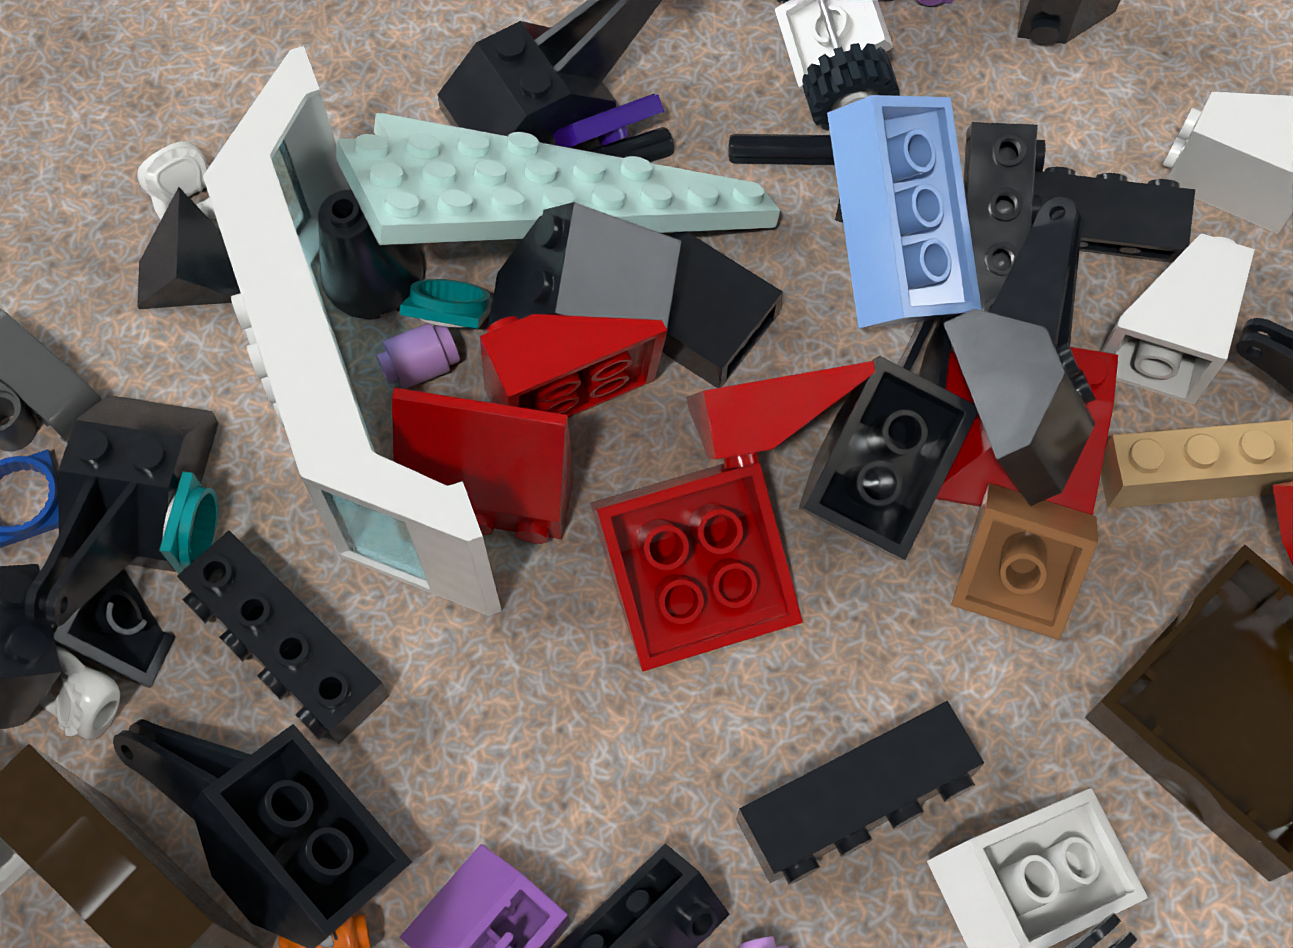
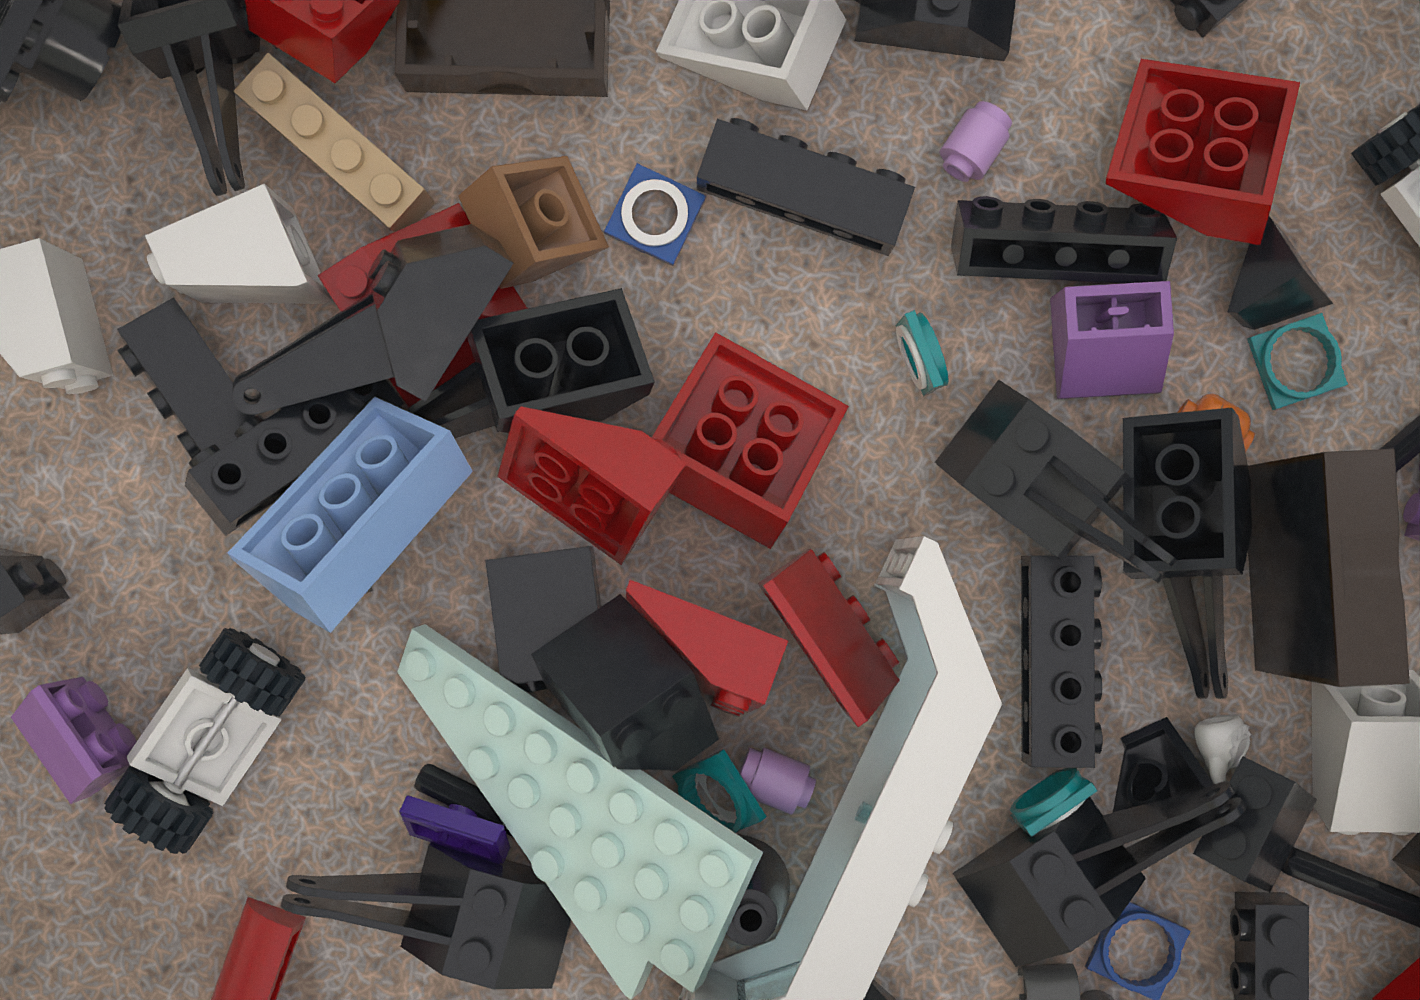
camera: 135 degrees left, 20 degrees up
(421, 736) = (1042, 477): none -> black slope
(628, 755) = (921, 352): none -> teal piece
(780, 149) = (335, 669): black axle -> none
(930, 691) = (666, 245): none -> piece

